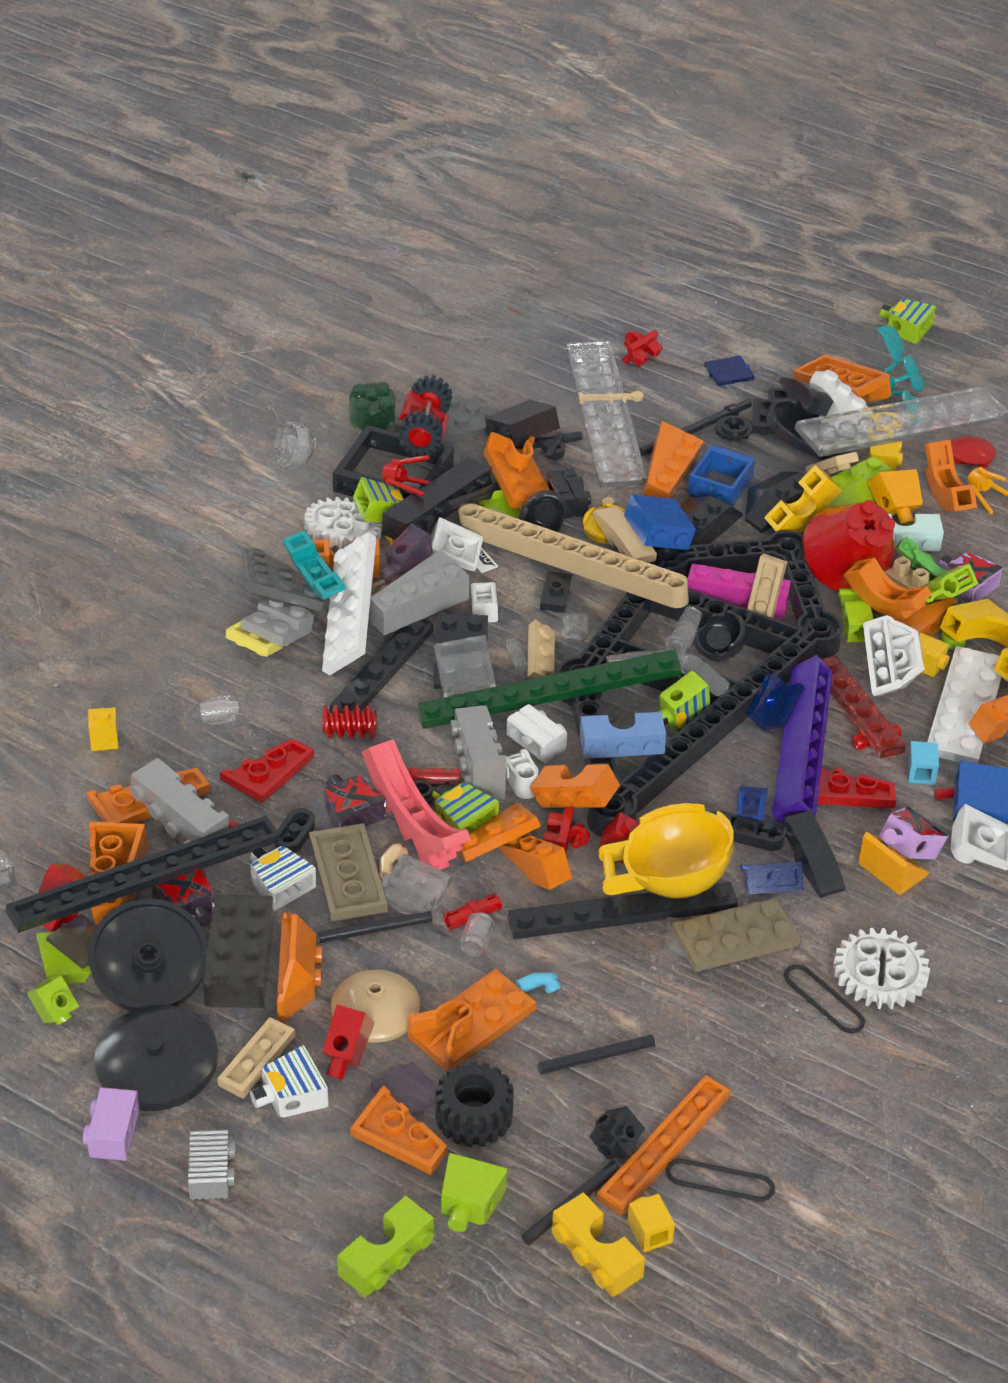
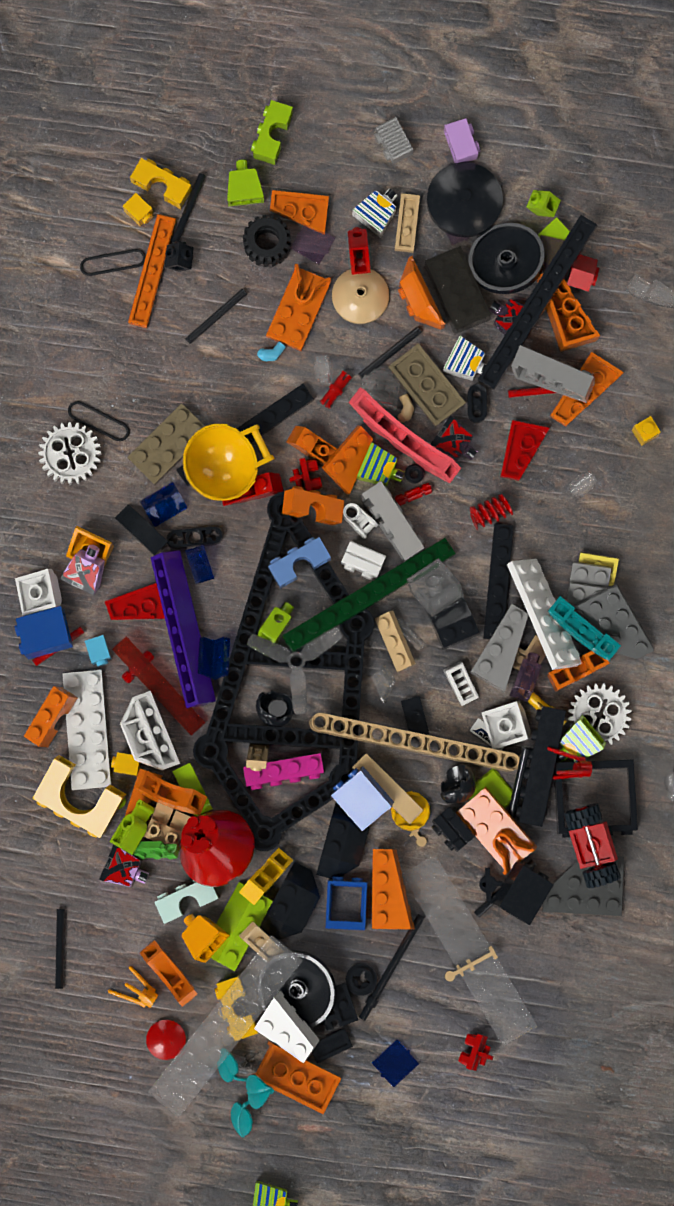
camera: 155 degrees right, 40 degrees up
(372, 405) = (651, 852): clear green brick -> none
(807, 396) = (313, 1023): black slope -> none

